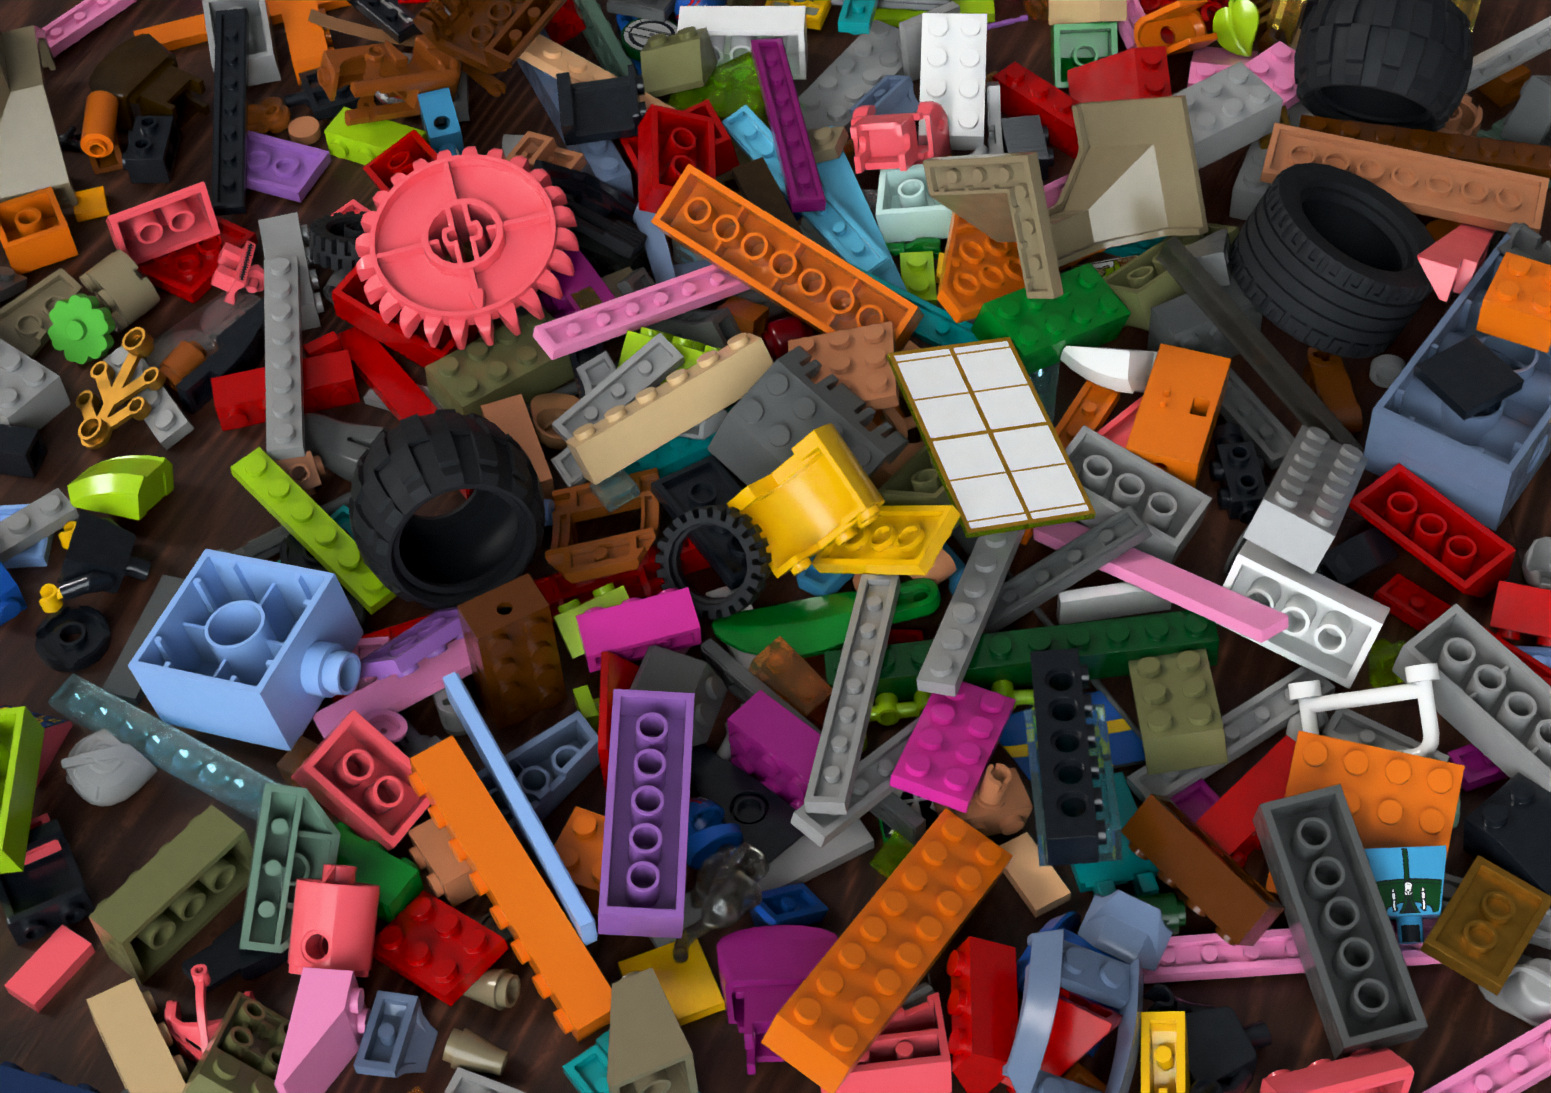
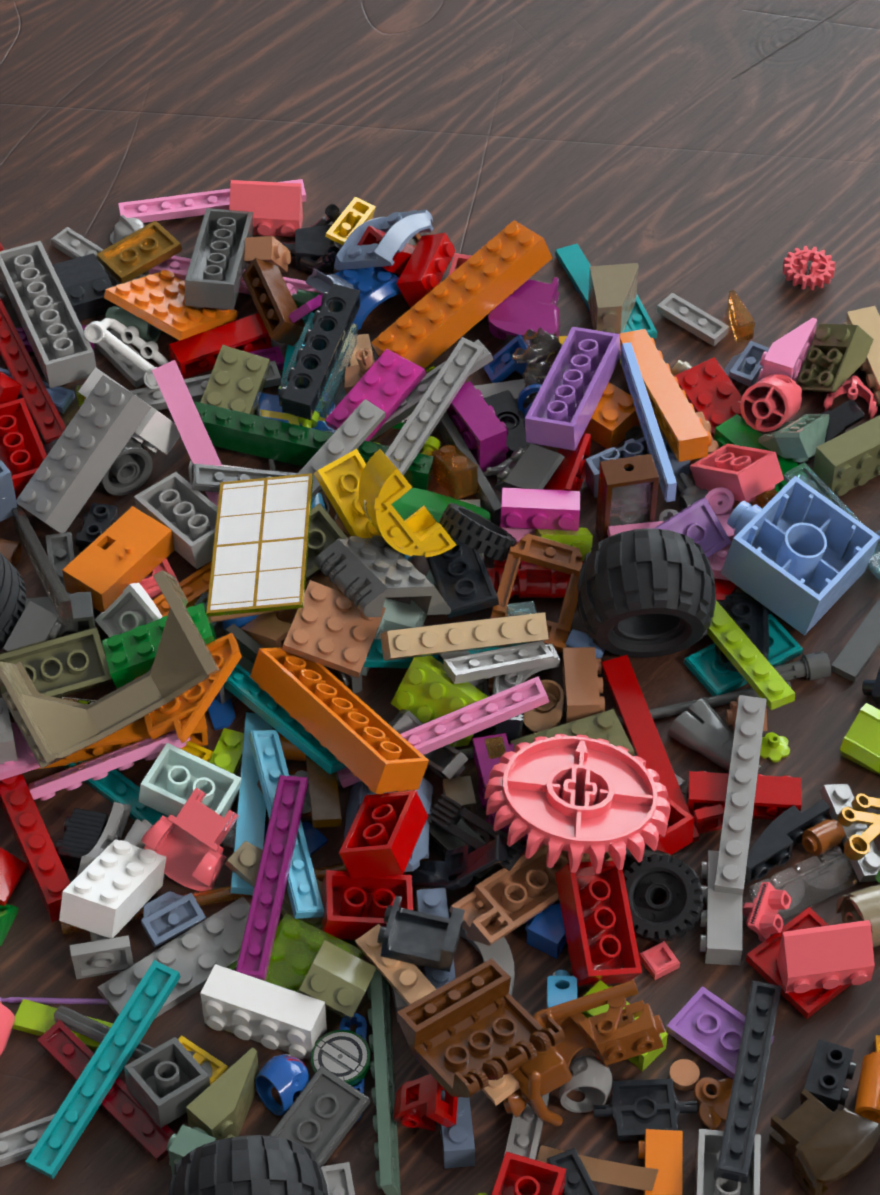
camera: 165 degrees left, 0 degrees up
(474, 1053) = (704, 347): dark tan cone -> none
(587, 706) = (586, 502): lime plate -> none
(1131, 849) = (306, 308): none -> magenta tile
(1270, 971) = (268, 250): none -> nougat brick
(1409, 886) = (167, 267): torso -> none

